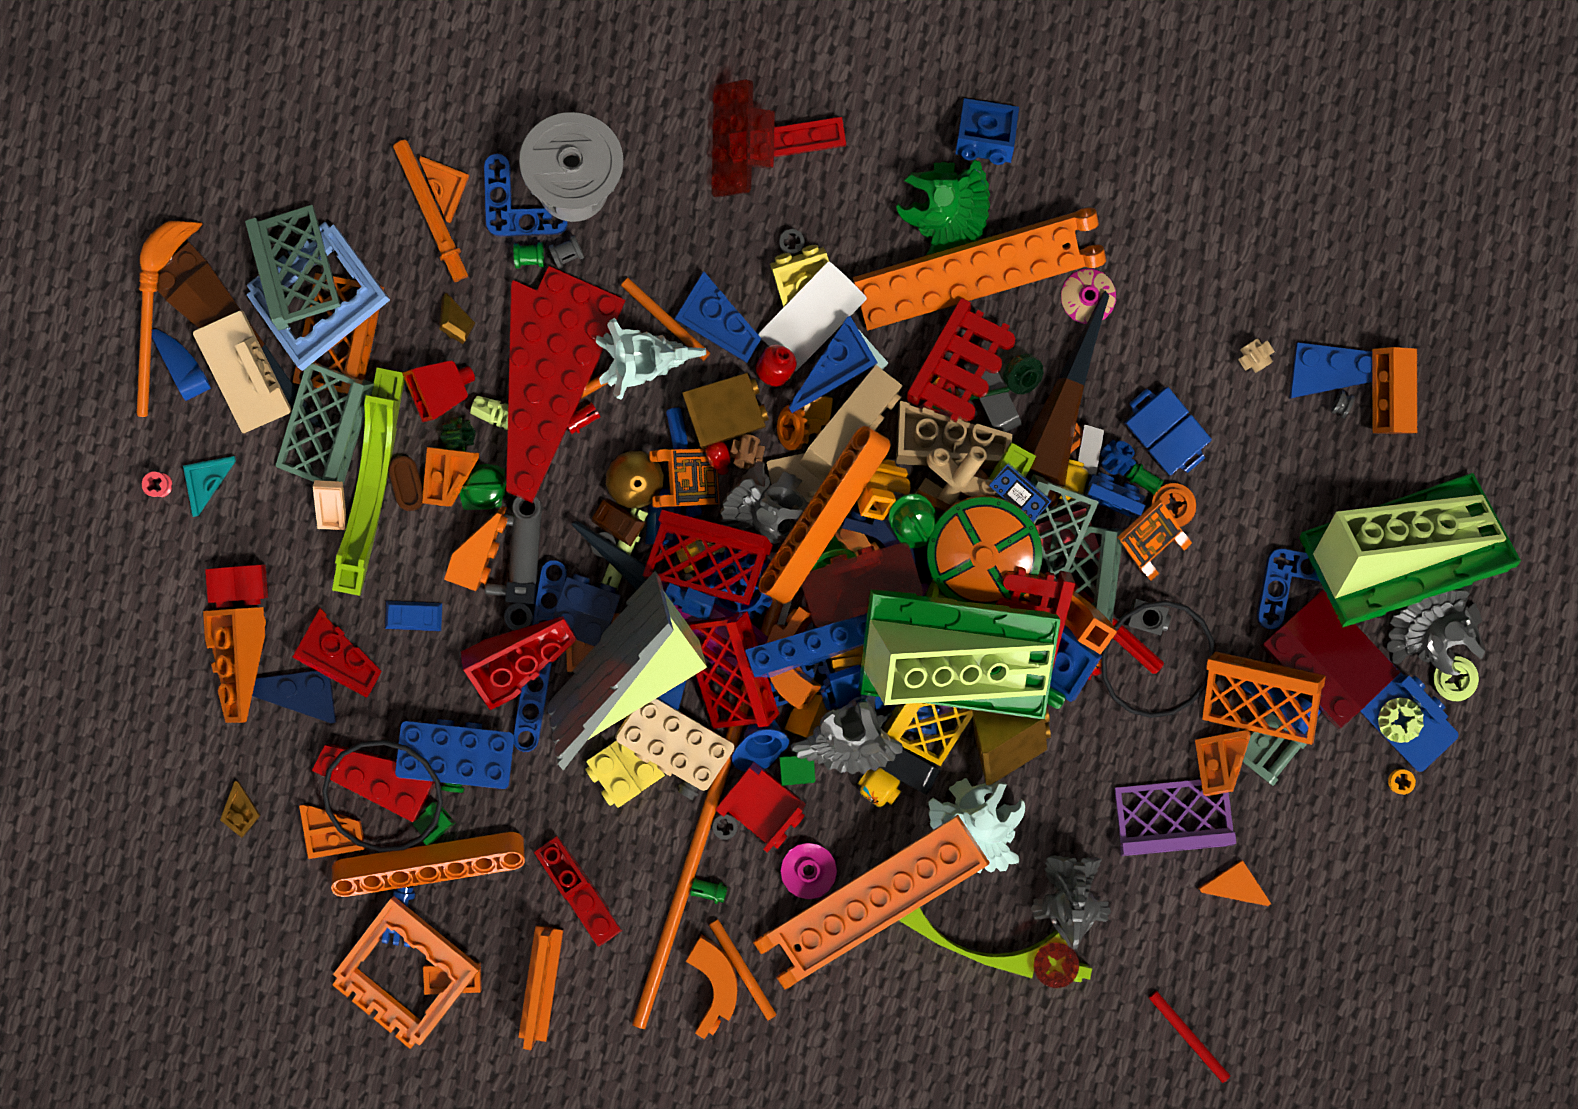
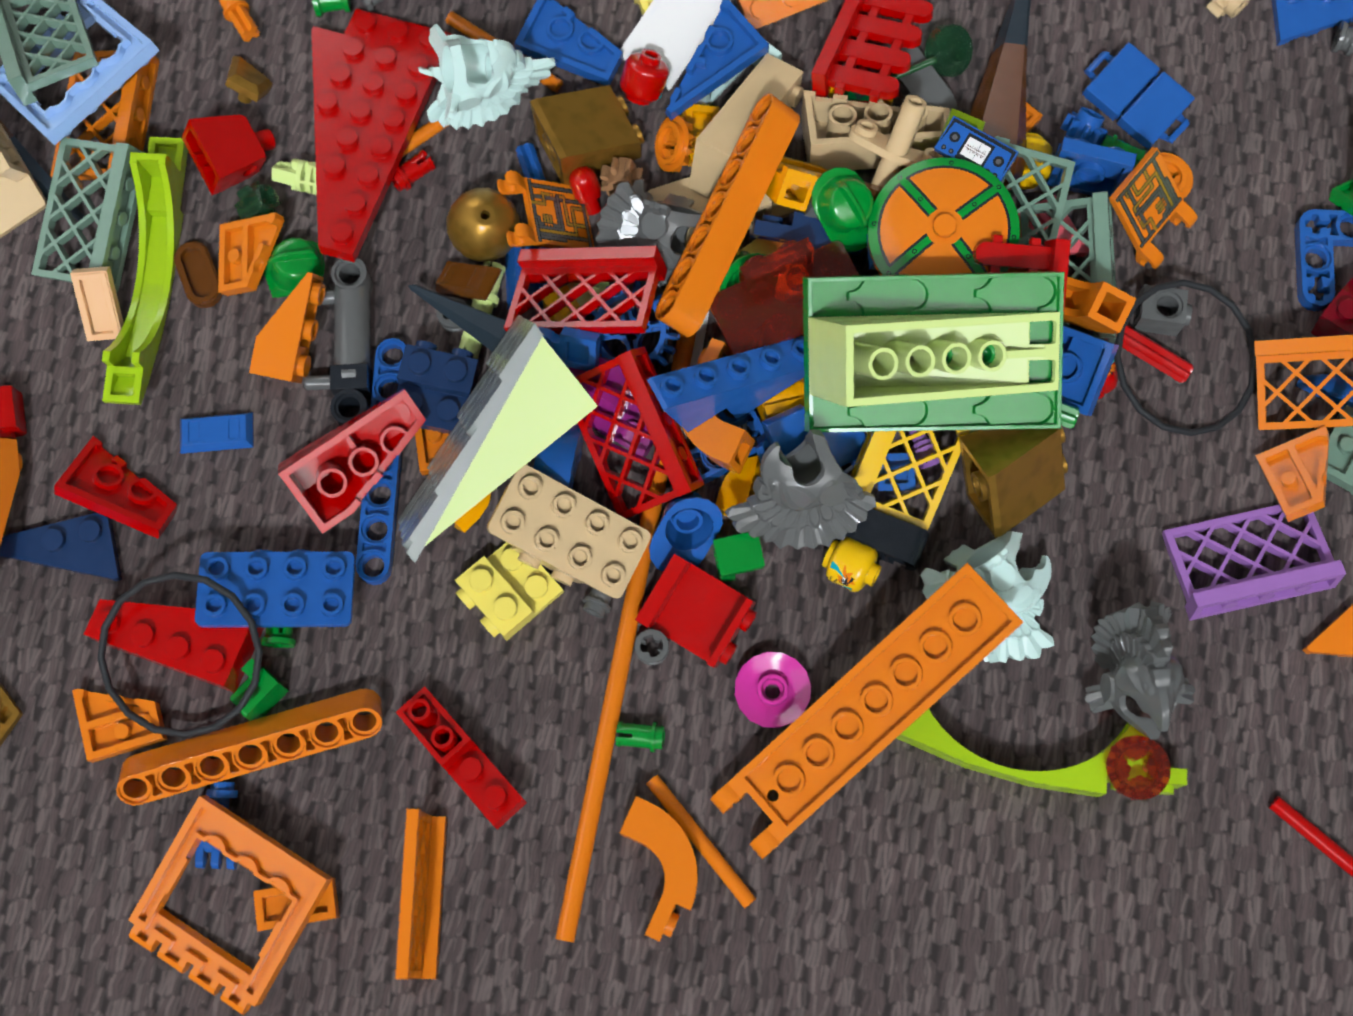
camera: 10 degrees left, 15 degrees down
(1091, 448) = (1048, 119): white sticker -> none

